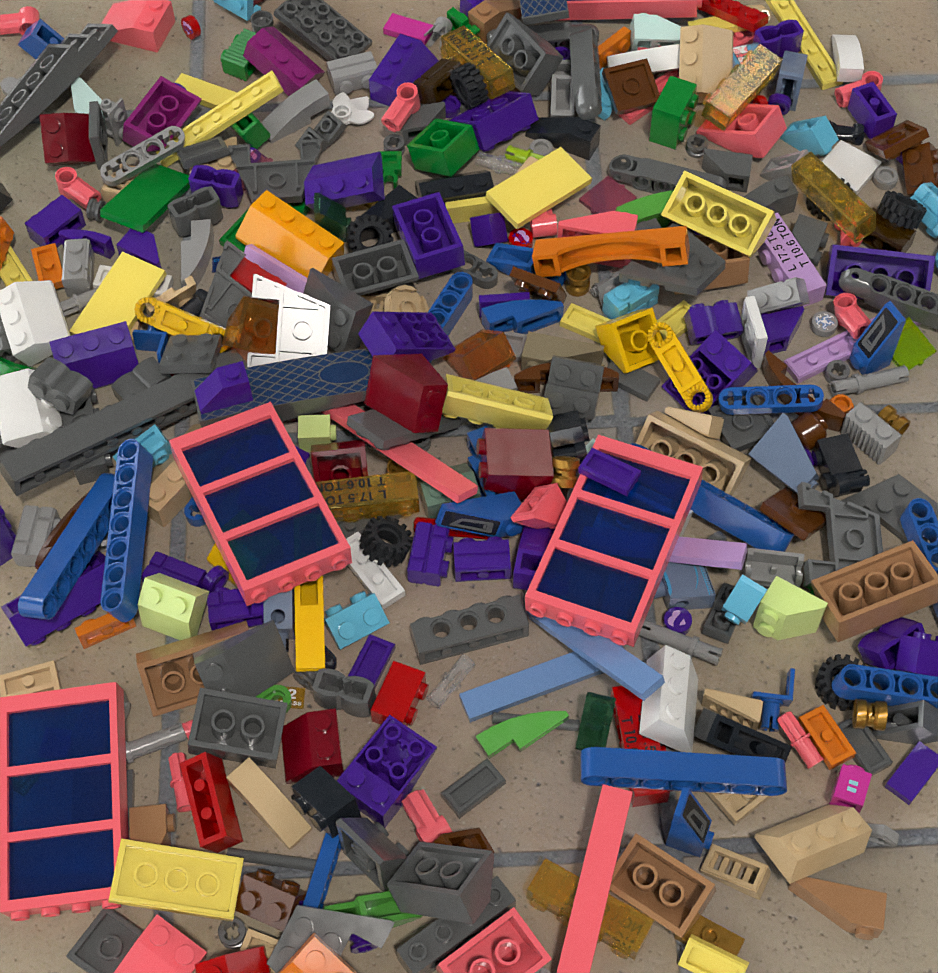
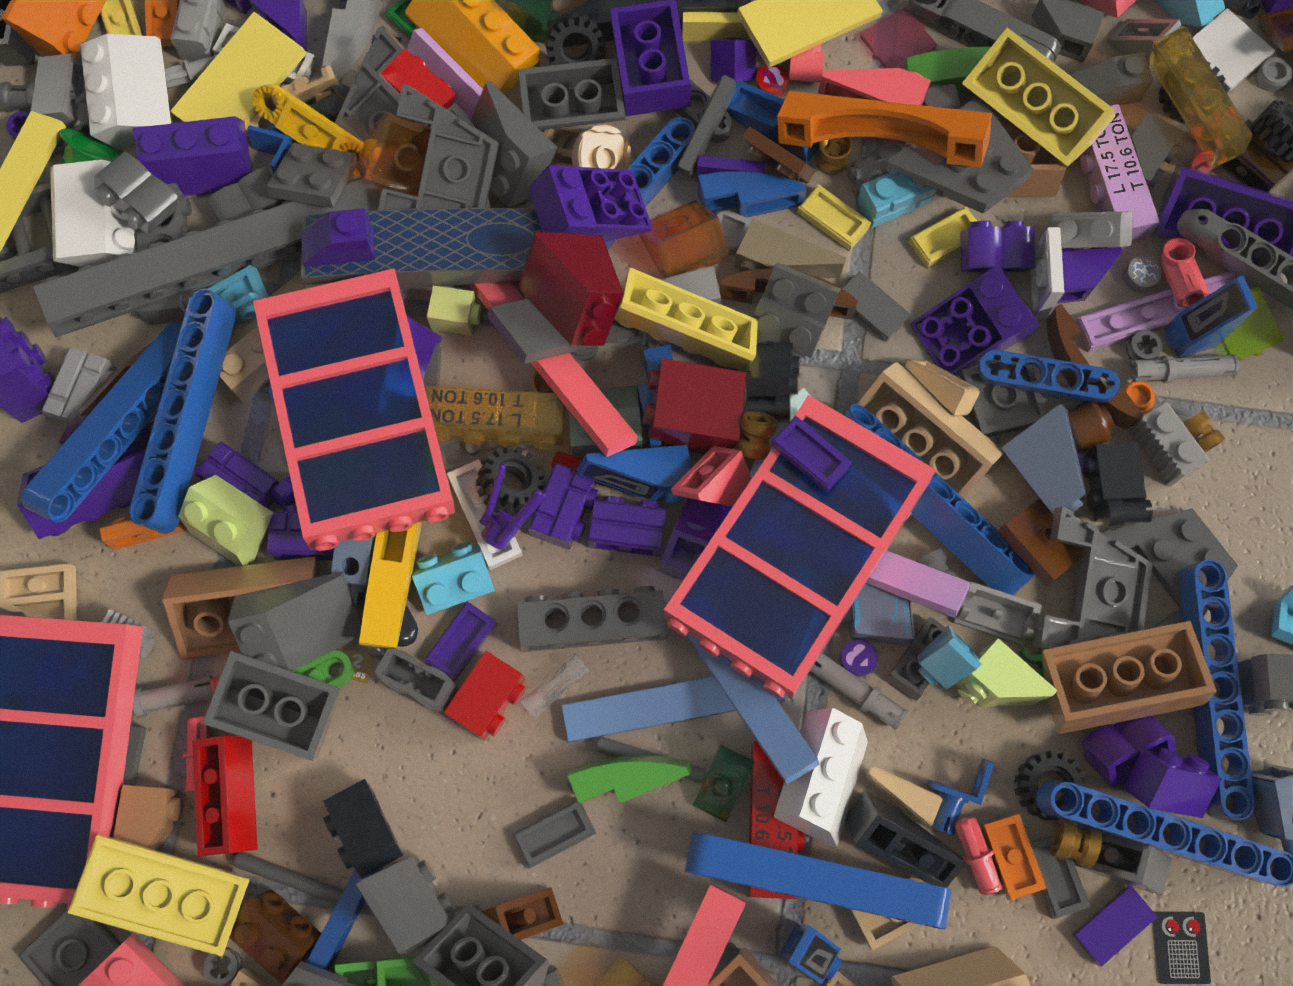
camera: 10 degrees right, 15 degrees up
(268, 803) = (295, 806): tan slope -> none
(310, 743) = (366, 742): dark red slope -> none
(339, 460) = (473, 360): dark red slope -> none
(387, 770) = (447, 795): dark purple slope -> none
(388, 572) = (502, 527): none -> dark purple plant
(424, 817) = (489, 878): coral piece -> none
(480, 275) = (707, 125): none -> dark grey tile
(627, 340) = (885, 254): yellow slope -> none
(680, 367) = (938, 307): yellow plate -> none
(851, 787) = (1028, 934): dark pink brick -> none

